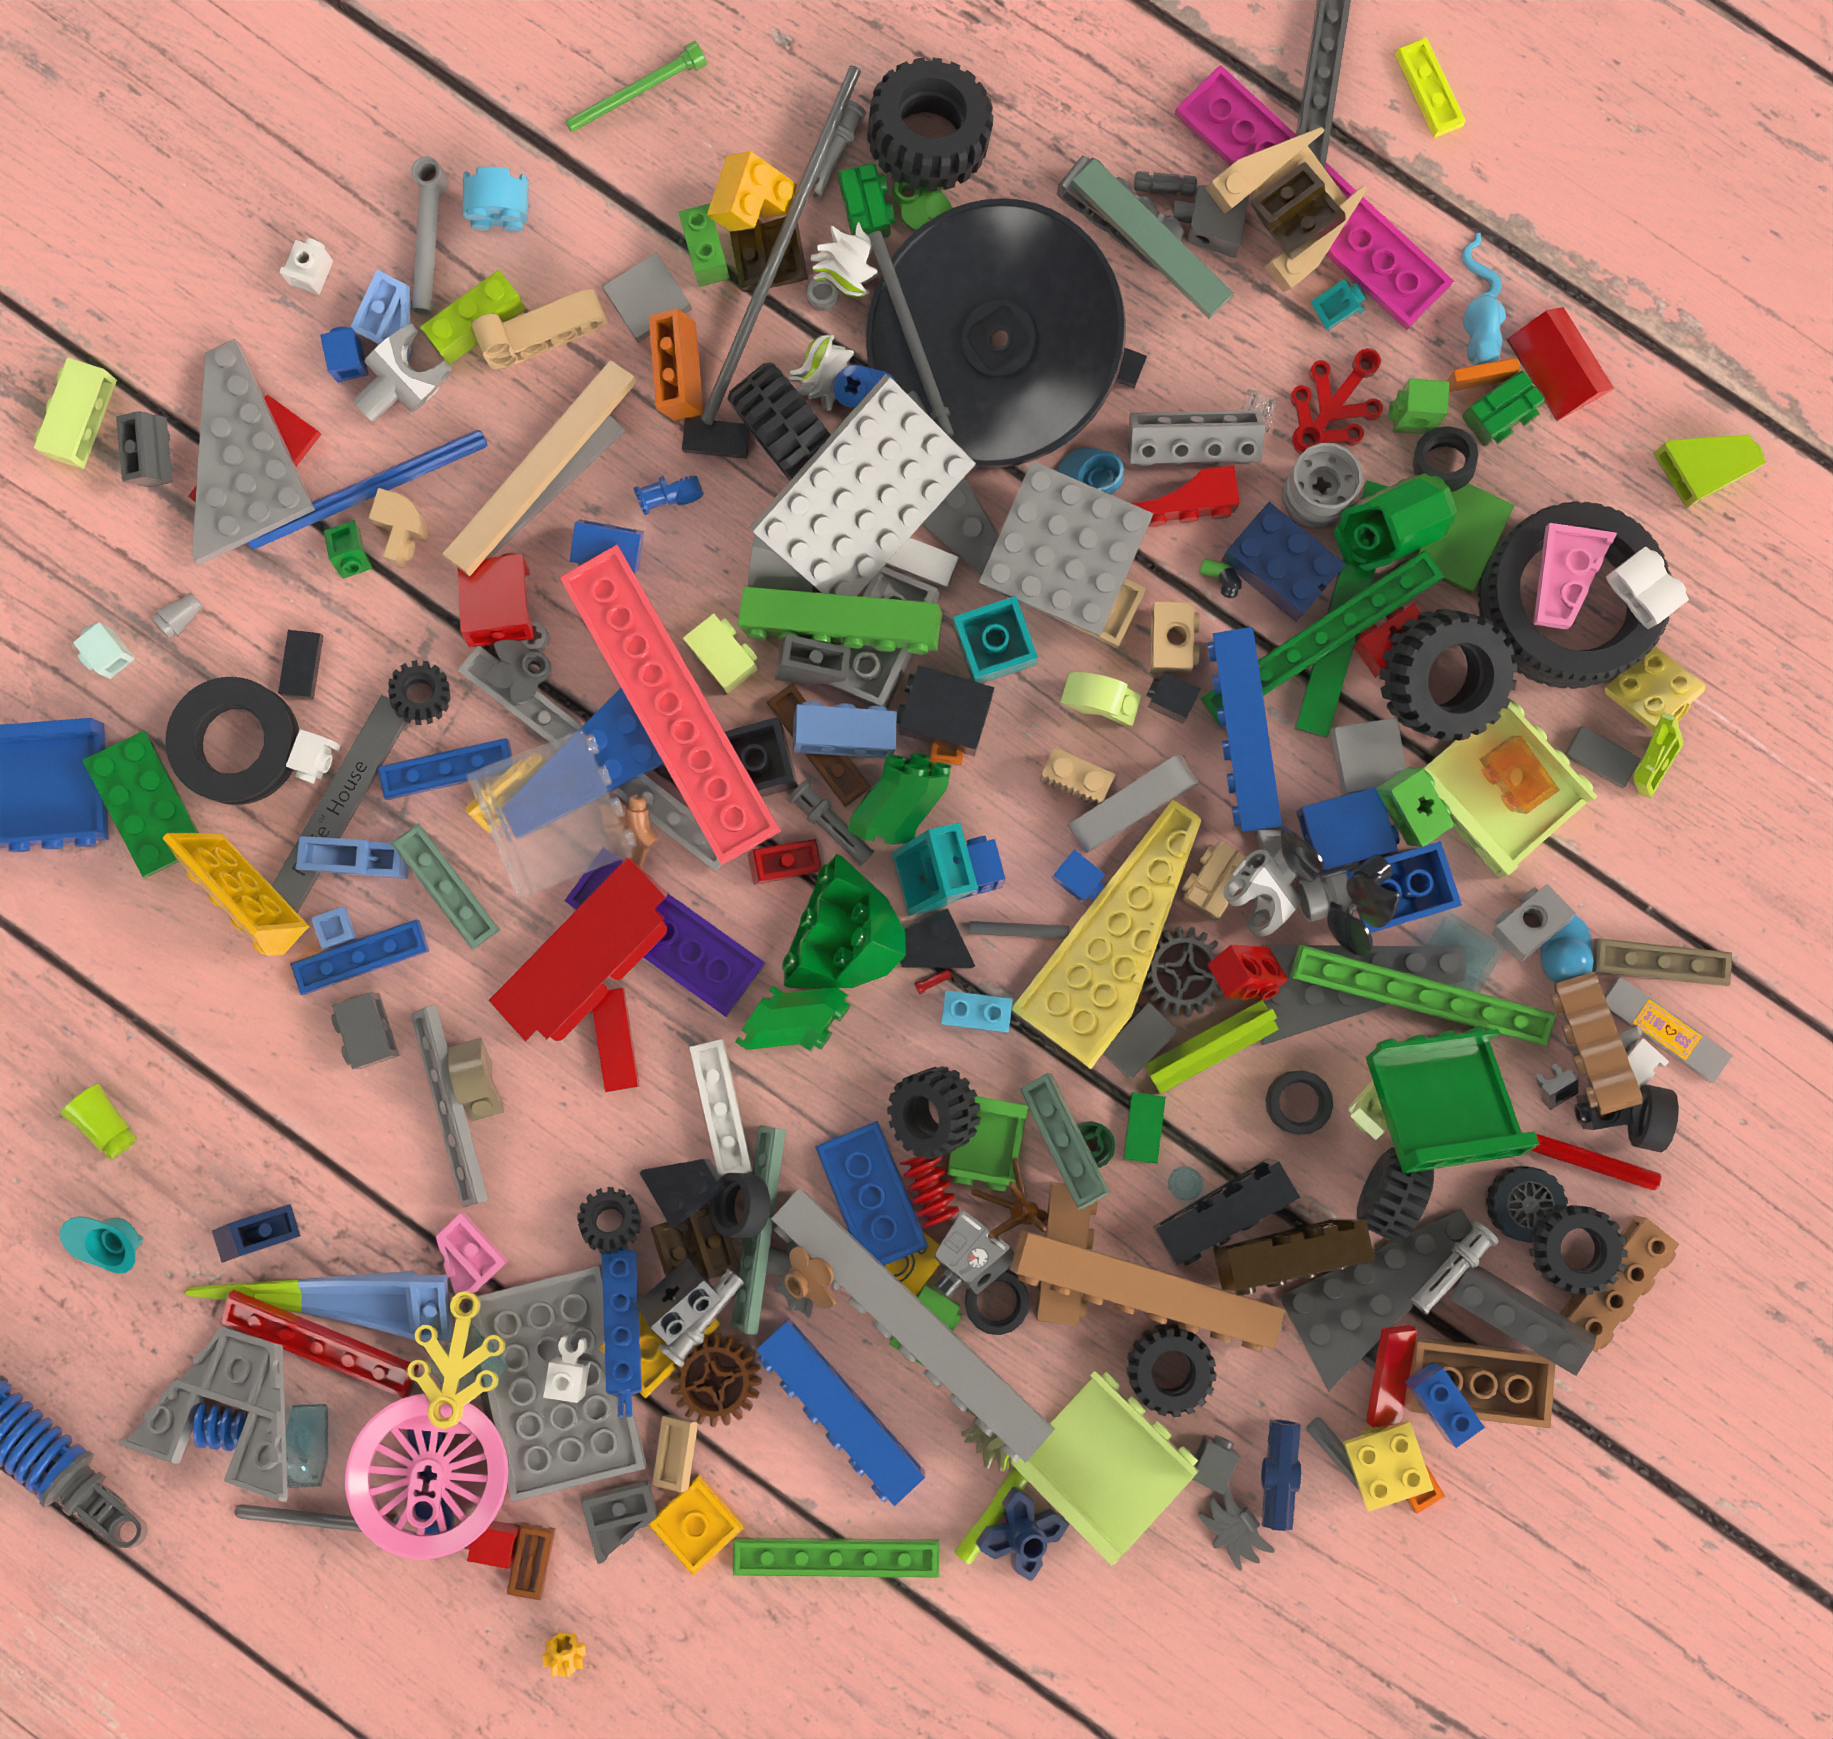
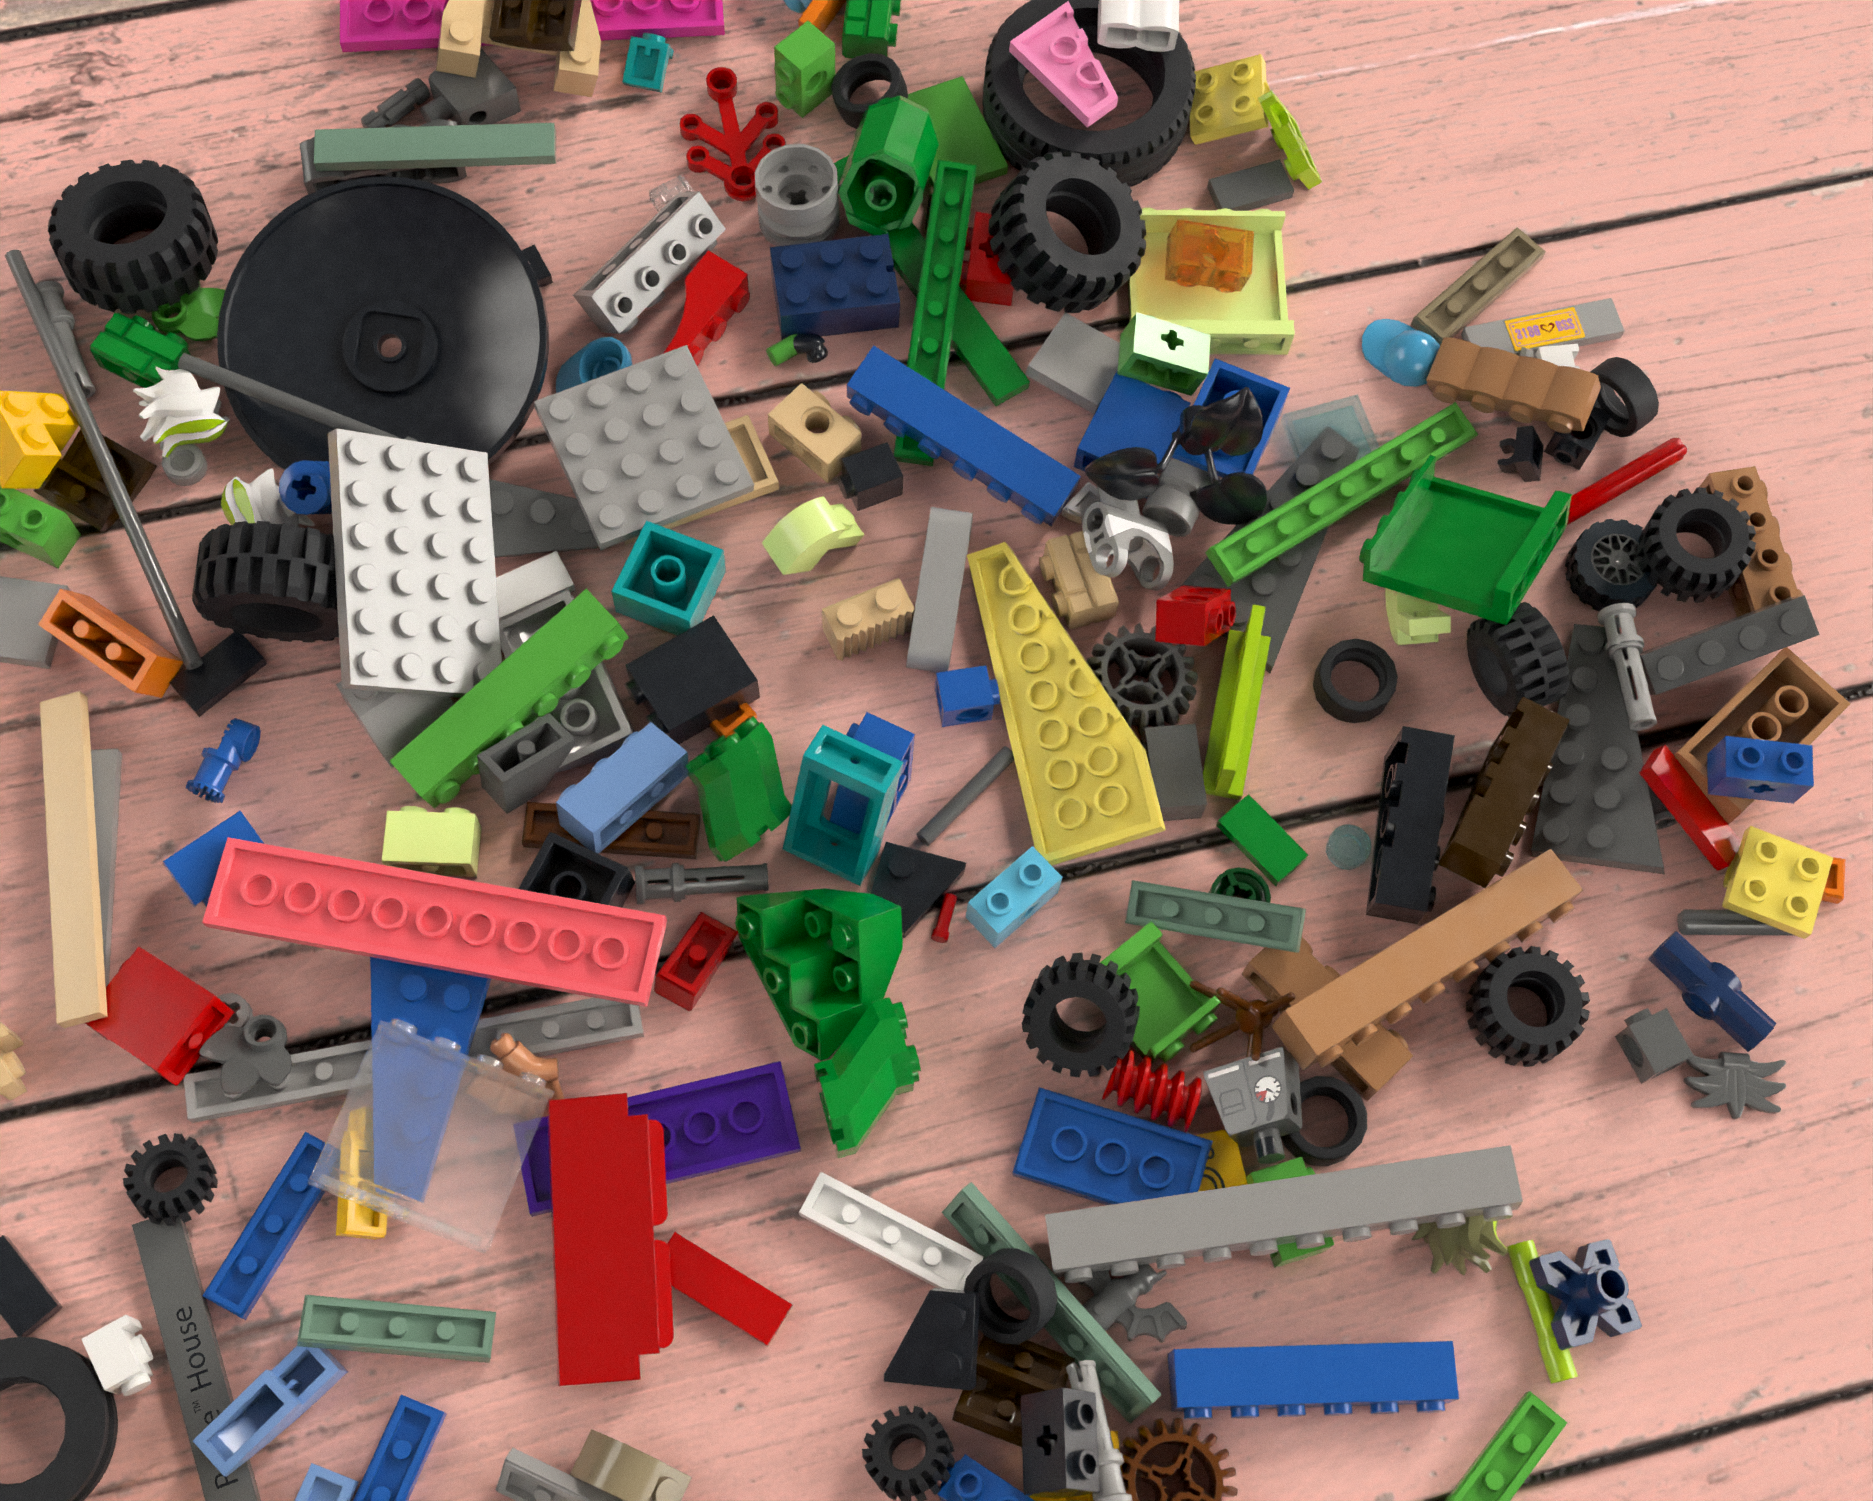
camera: 60 degrees left, 15 degrees down
(810, 1278) = (1149, 1280): medium nougat plate -> none
(1108, 1467) = (1583, 1144): yellowish green panel -> none
(1547, 908) = (1353, 332): light grey brick -> none

